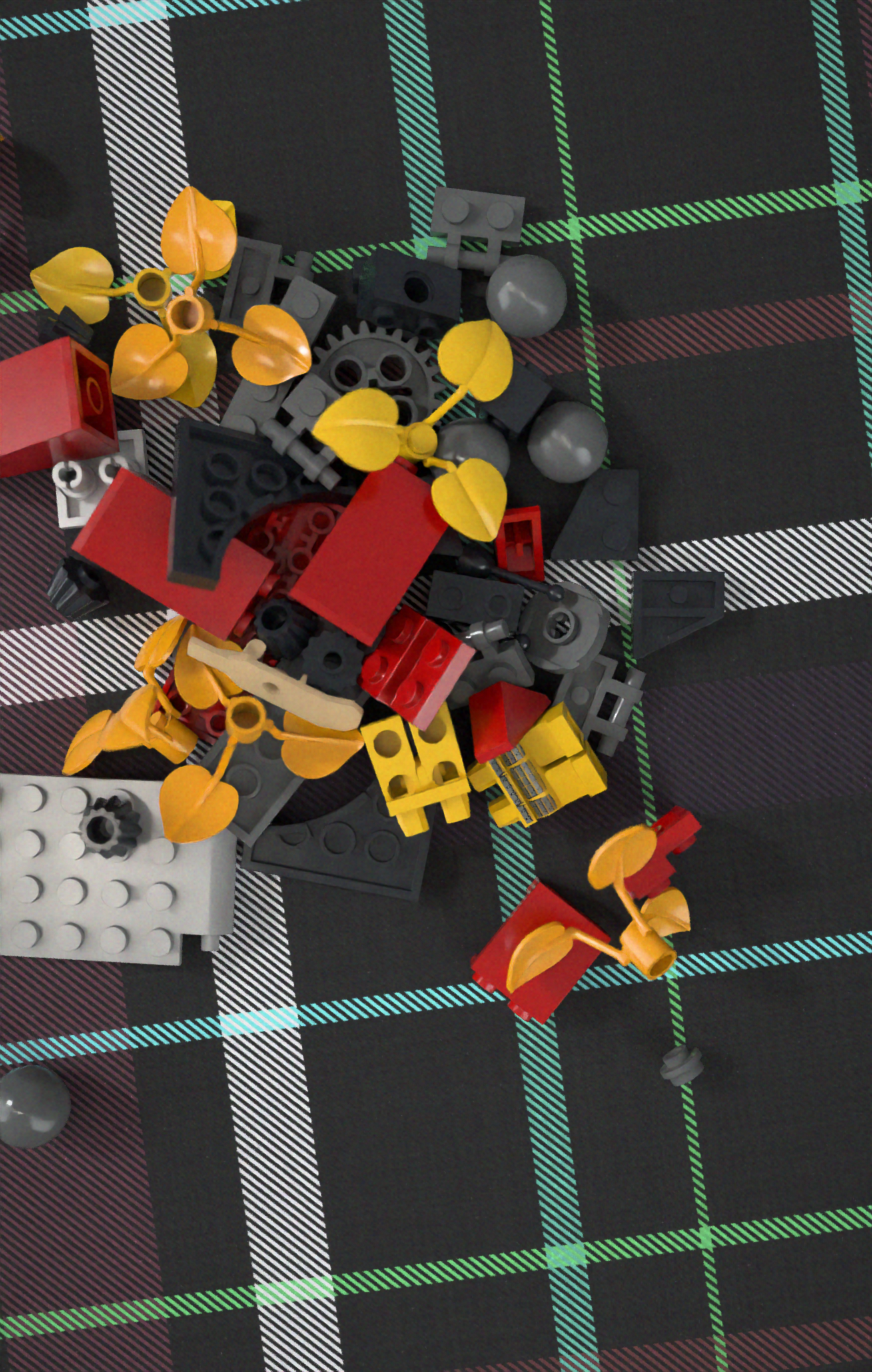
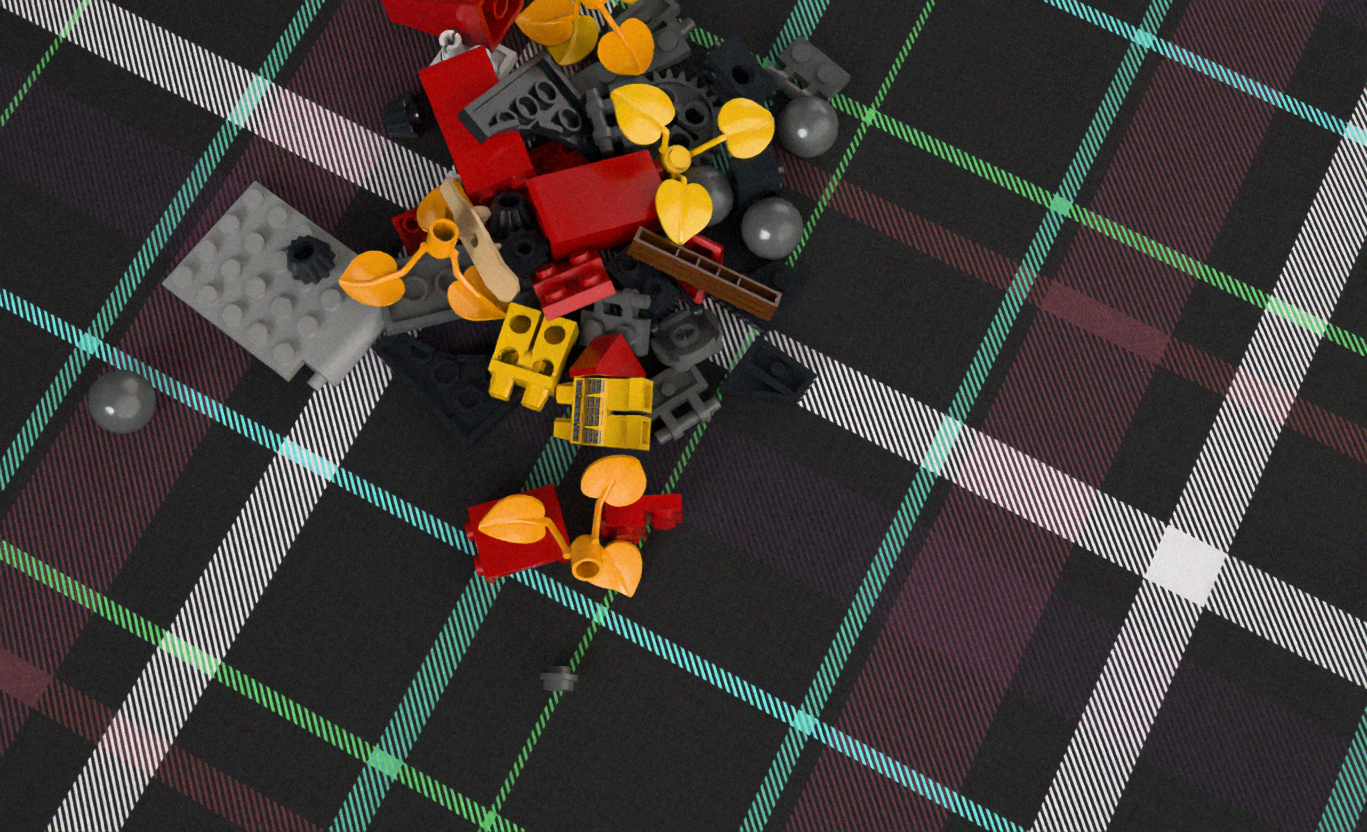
camera: 30 degrees right, 15 degrees down
(134, 722) = (388, 230): light orange plant -> none
(539, 551) = (704, 274): none -> reddish brown piece

